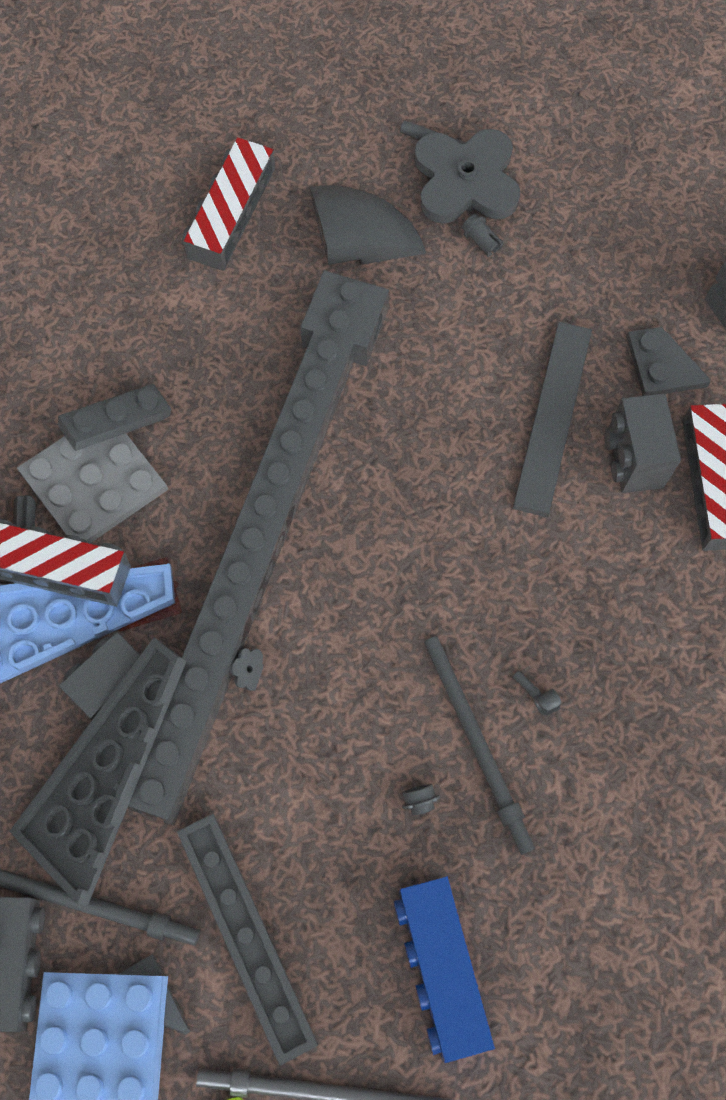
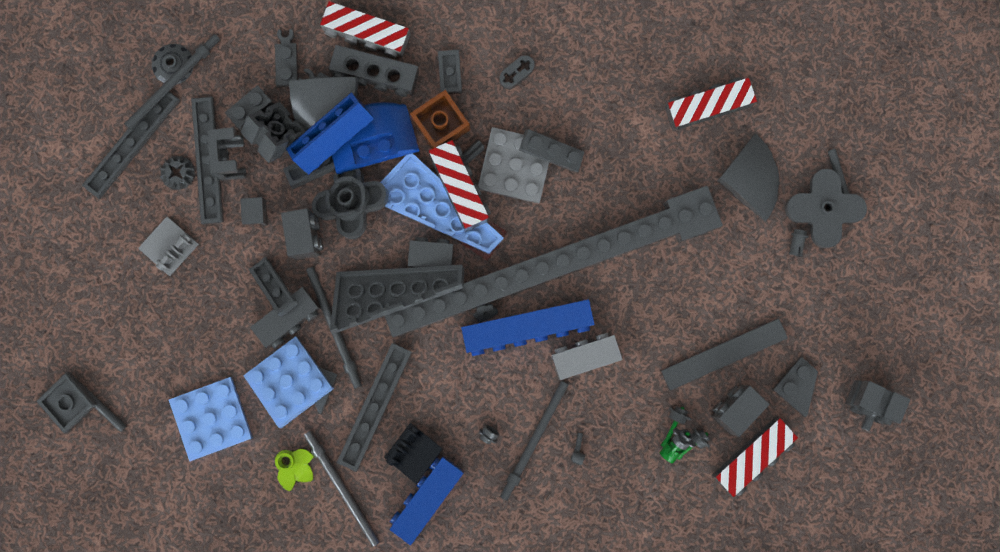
camera: 50 degrees right, 15 degrees up
(312, 628) = (527, 326): none -> blue brick
(360, 932) = (413, 453): none -> black hinge
(417, 582) = (586, 356): none -> light grey brick
(629, 536) = (682, 438): none -> dark grey plant

